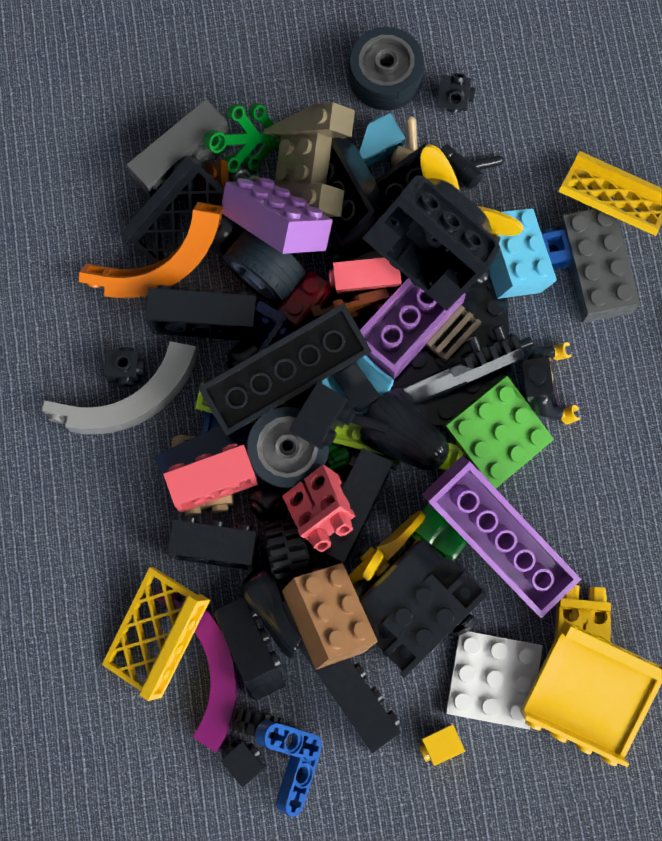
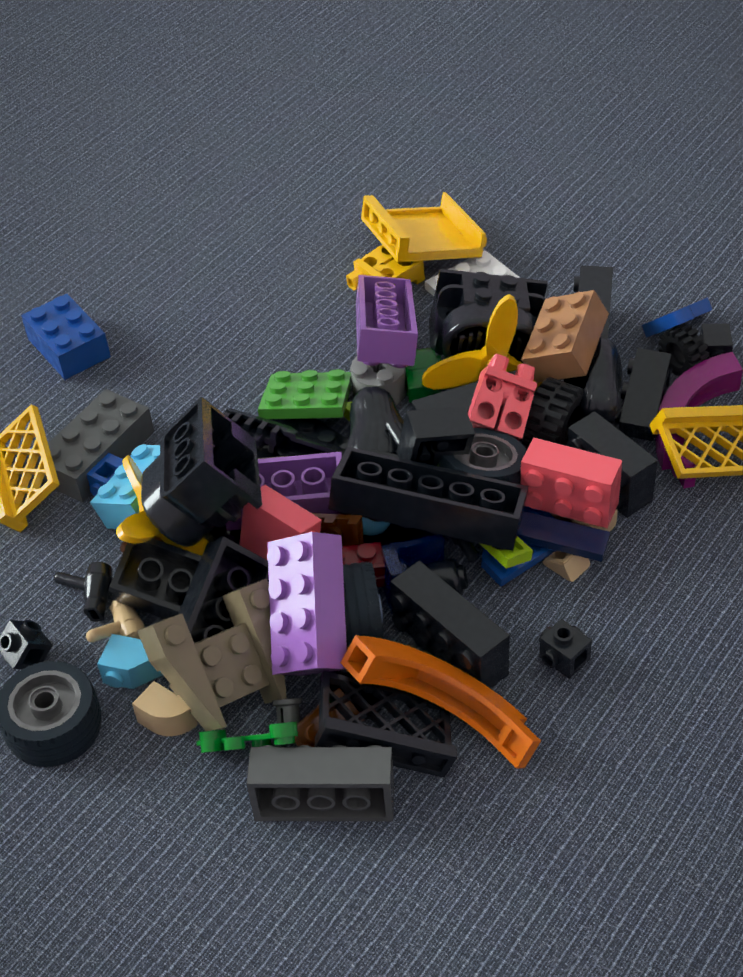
camera: 135 degrees left, 30 degrees down
(136, 408) = (593, 615): light grey arch -> none
(441, 745) = (557, 272): yellow brick -> none
(541, 383) = (240, 392): black torso -> none

